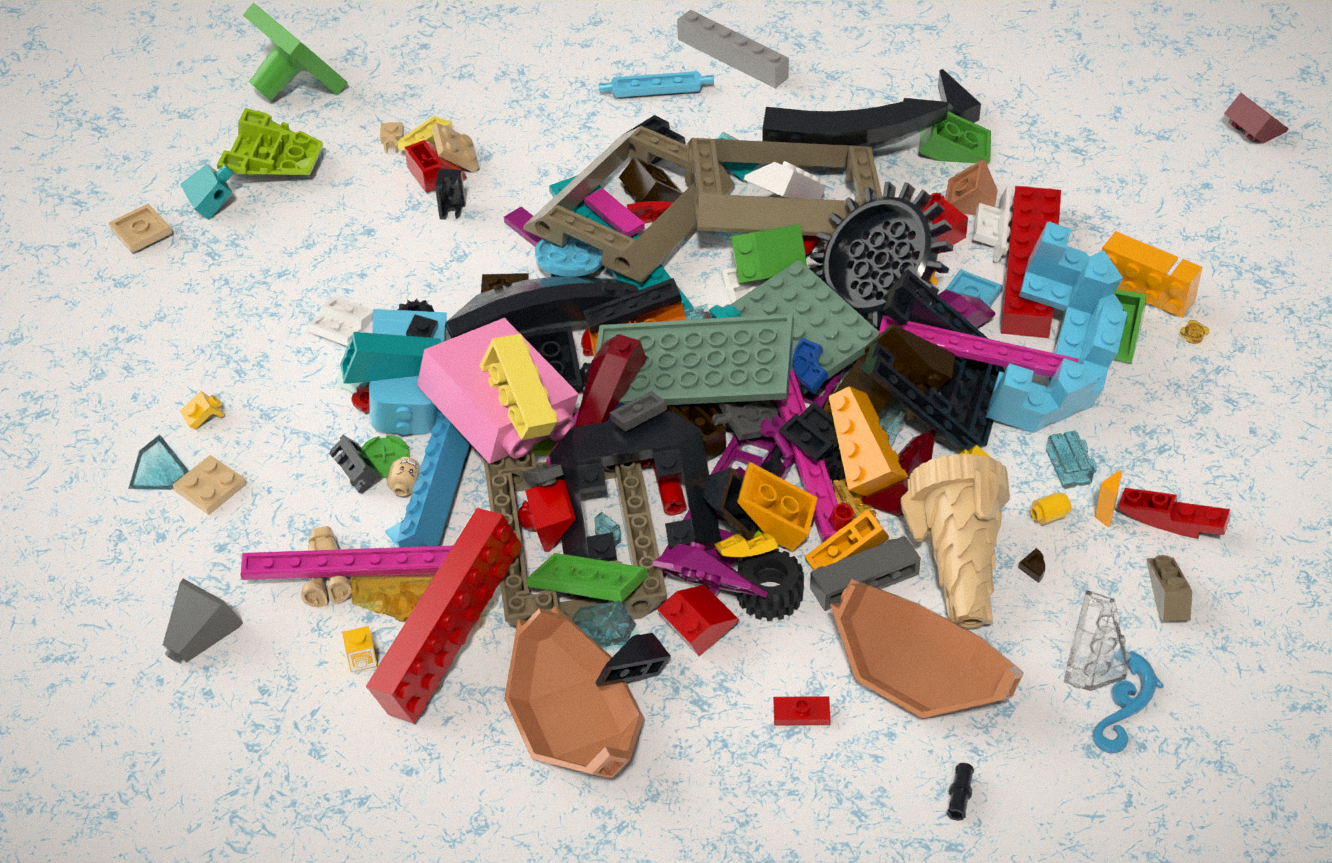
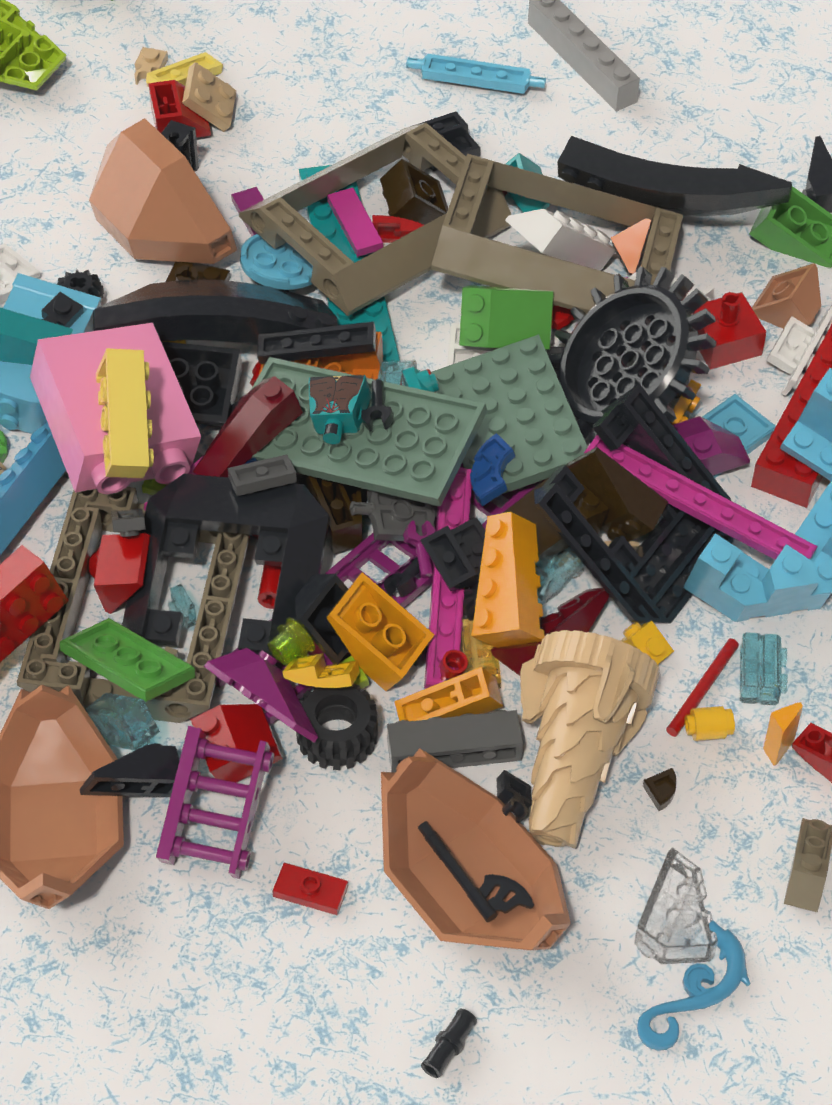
camera: 15 degrees right, 5 degrees up
(452, 231) = (156, 201): none -> nougat panel
(675, 344) = (338, 405): none -> torso
(681, 679) = (190, 780): none -> magenta fence
(707, 339) = (377, 409): none -> black bar
(713, 529) = (291, 642): none -> clear neon green piece
(837, 179) = (630, 244): none -> orange slope
(929, 598) = (514, 794): none -> black plate
(935, 678) = (487, 908): none -> black piece
(1031, 485) = (703, 686): none -> red bar

